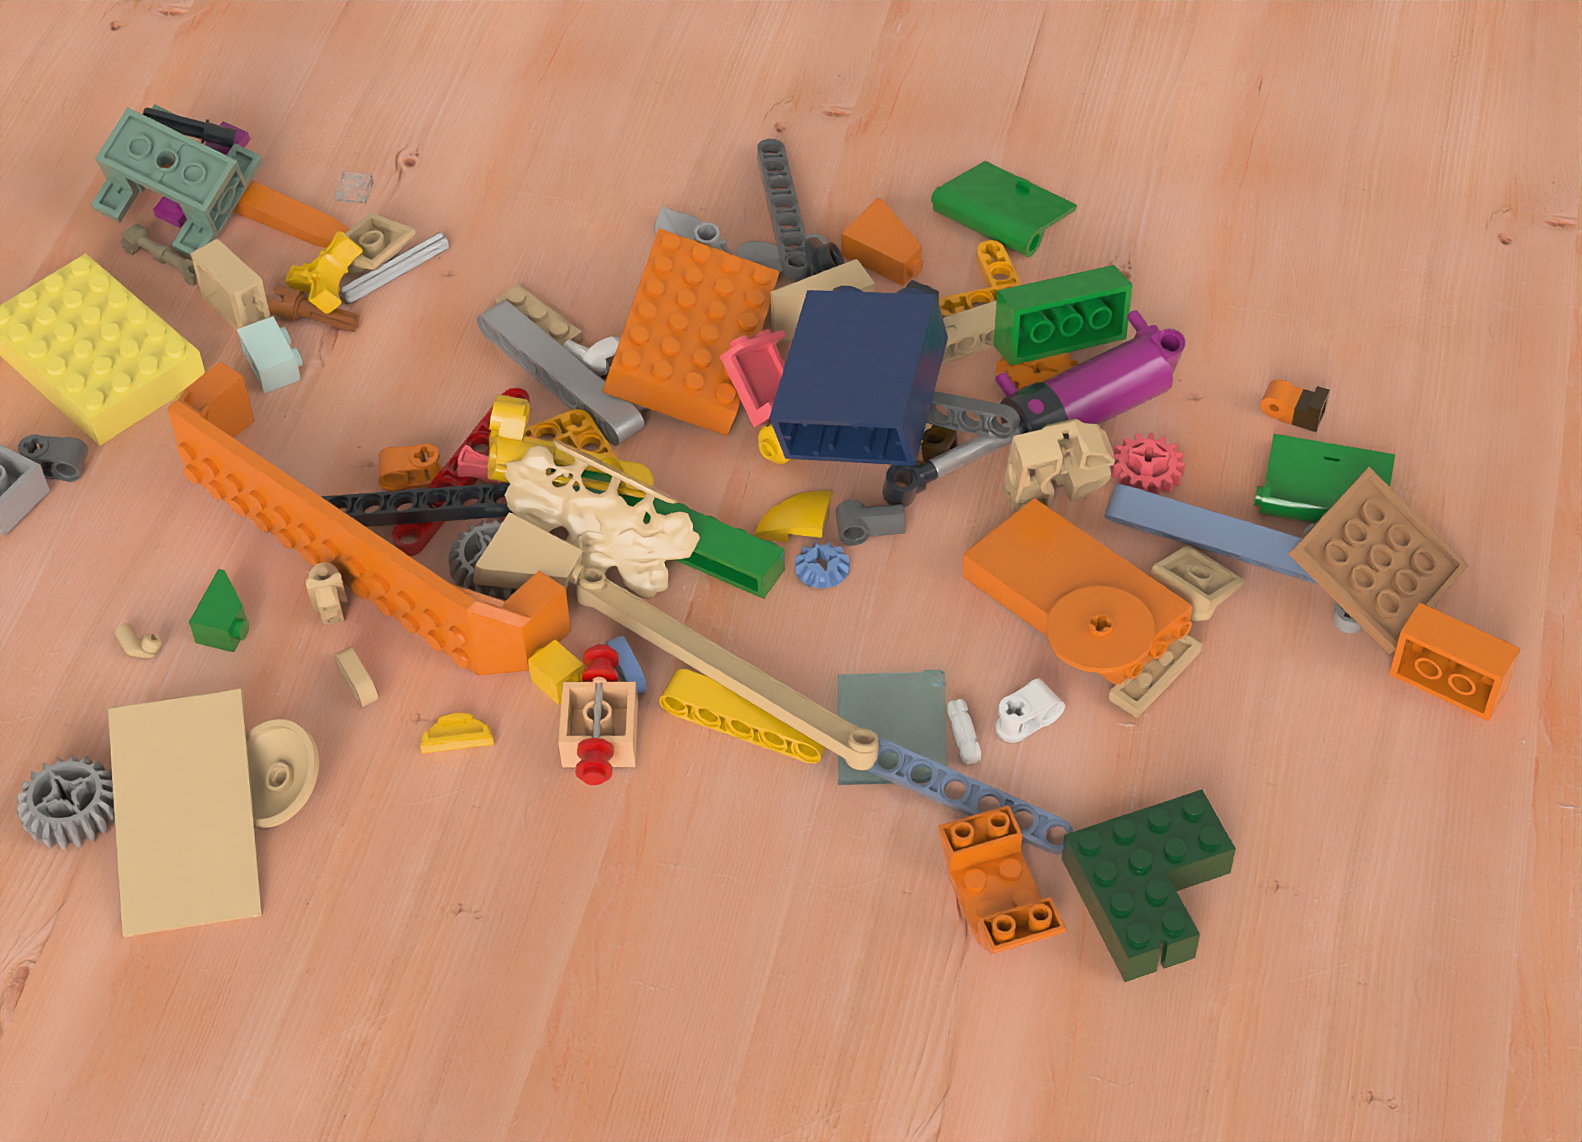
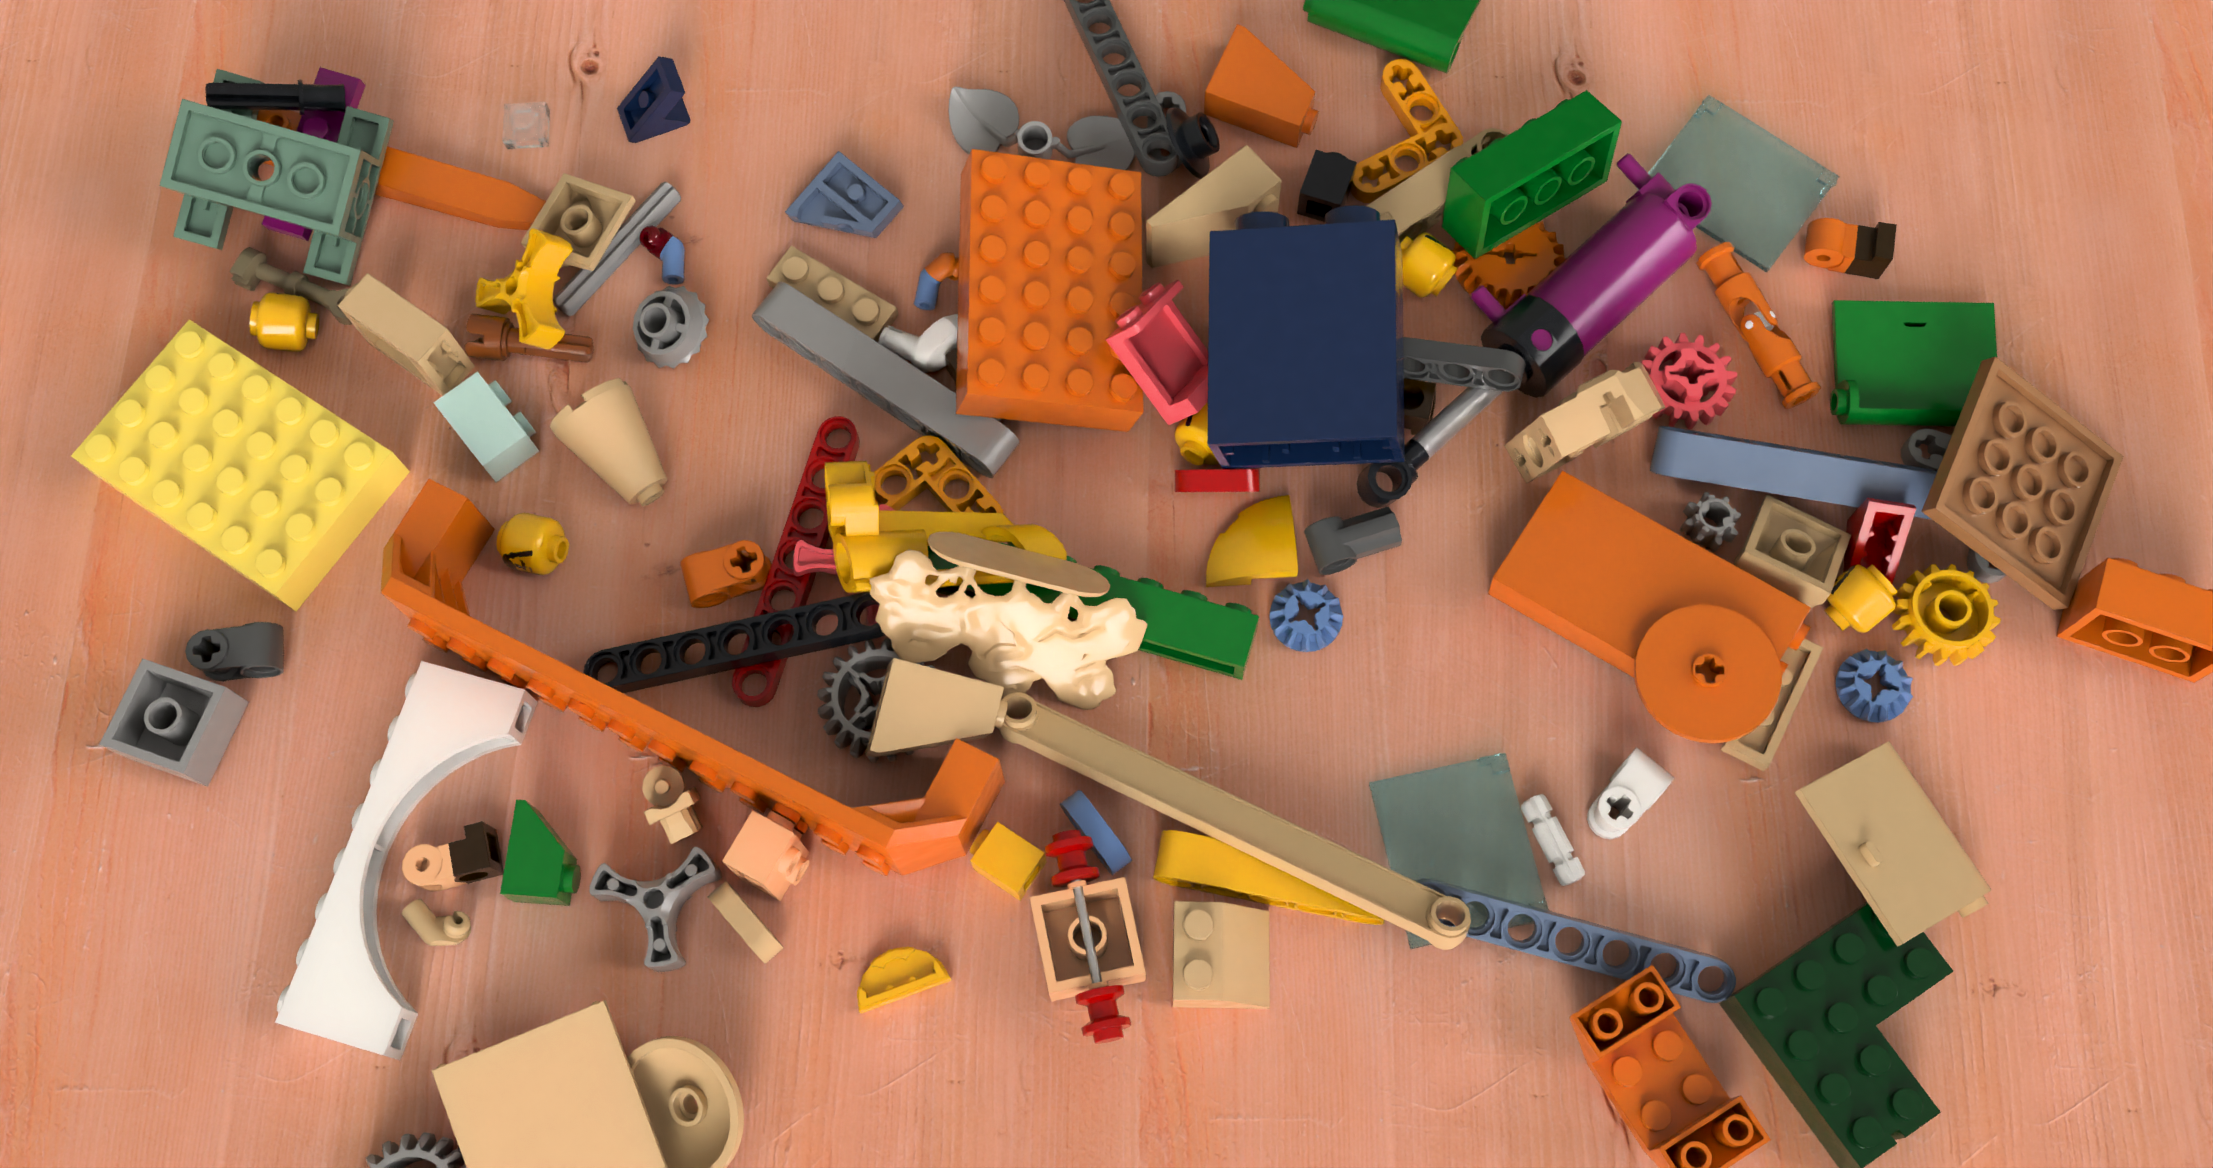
camera: 10 degrees left, 20 degrees up
(60, 660) = (341, 972): none -> white arch
(148, 271) = (283, 322): none -> yellow head
(162, 605) = (456, 862): none -> leg
(278, 427) = (532, 543): none -> yellow head
(297, 653) = (658, 902): none -> light grey piece
(353, 371) = (613, 441): none -> tan cone
(383, 631) = (768, 854): none -> light nougat brick
(416, 316) = (670, 326): none -> light grey piece
(429, 273) = (667, 249): none -> arm
(448, 185) = (654, 103): none -> dark blue slope
(564, 263) = (845, 200): none -> sand blue wing
(611, 321) = (931, 276): none -> arm
(692, 756) = (1220, 956): none -> tan slope
(780, 469) = (1217, 480): none -> red beam
(972, 365) = (1426, 264): none -> yellow head
(1141, 551) = (1716, 510): none -> light grey gear
(1212, 441) = (1769, 345): none -> orange piece
(1215, 764) = (1894, 843): none -> tan door
(1231, 356) = (1754, 180): none -> clear light blue piece
(1238, 616) = (1860, 598): none -> yellow head
(1242, 690) = (1857, 694): none -> medium blue gear
(1261, 584) = (1878, 535): none -> red slope
(1301, 638) = (1965, 602): none -> yellow gear

